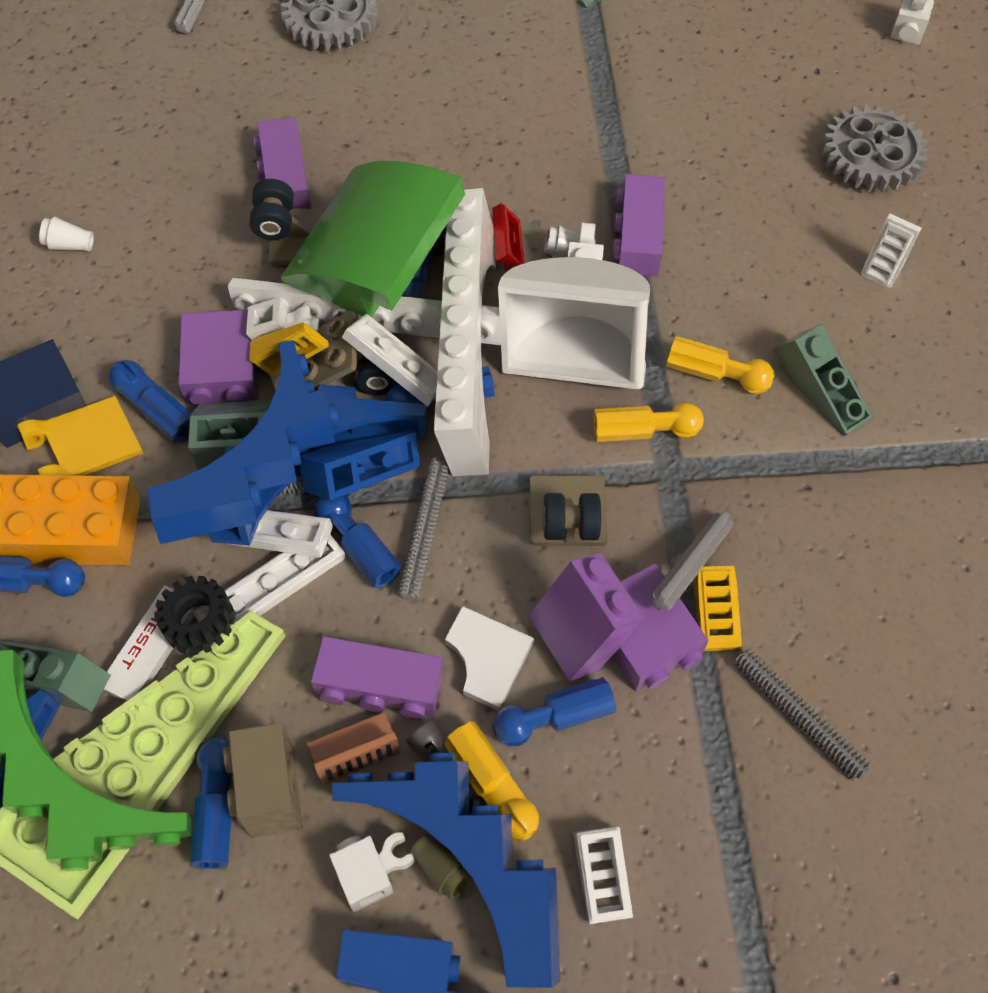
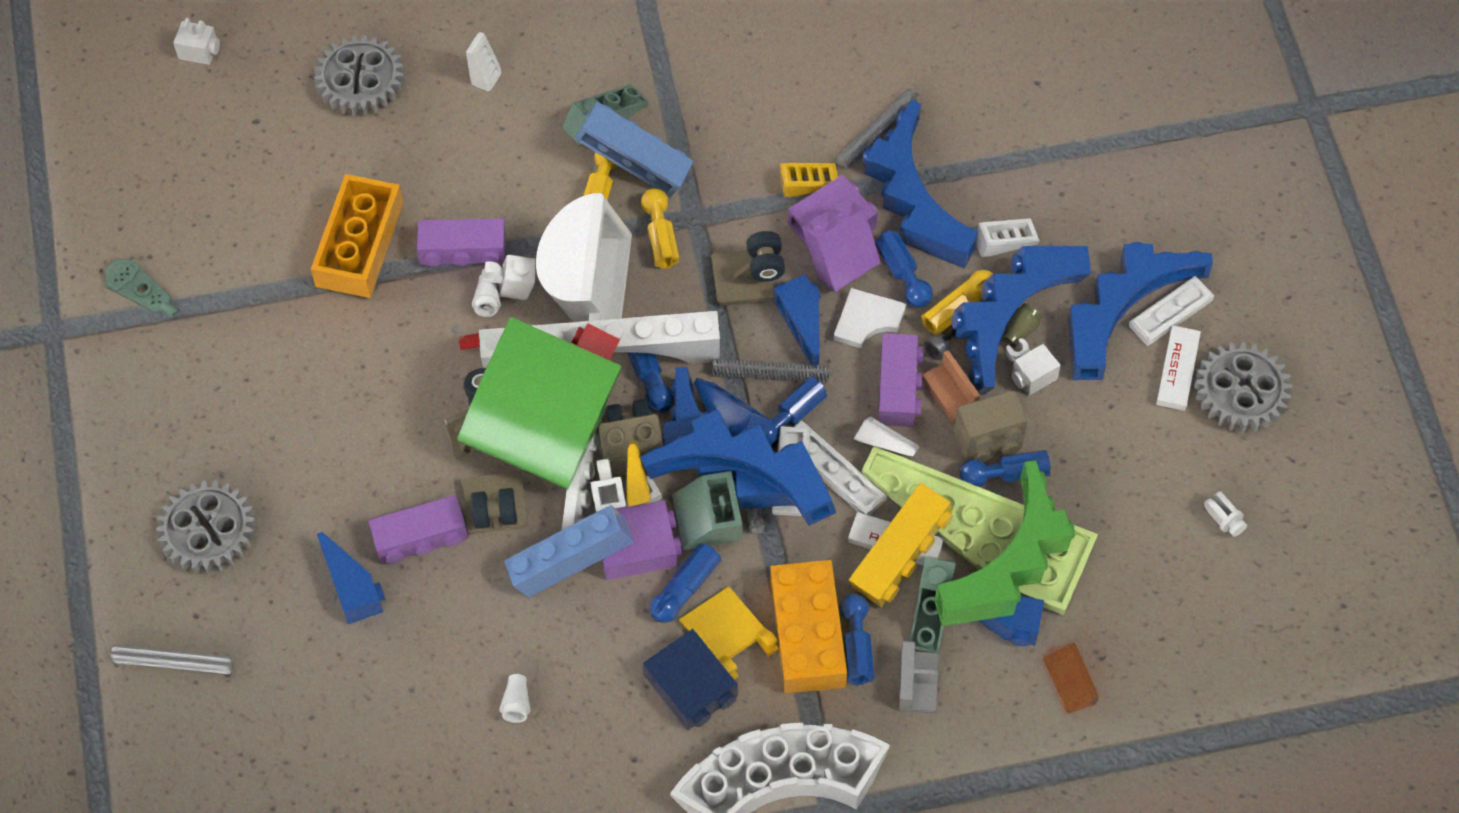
camera: 95 degrees left, 0 degrees up
(119, 636) = (901, 545): none -> yellow brick
(185, 598) = (869, 483): black tyre -> none
(204, 279) = (569, 551): none -> medium blue brick
(236, 110) = (353, 583): none -> blue slope
(306, 647) = (881, 436): none -> white slope
(393, 358) = (641, 388): white tile -> none
(434, 286) = (595, 341): none -> red brick
(497, 570) = (799, 307): none -> blue slope
(651, 129) = (357, 236): none -> light orange brick
(691, 561) = (781, 186): light grey axle -> none
(737, 725) = (924, 221): none -> blue arch
(753, 387) = (633, 149): none -> medium blue brick

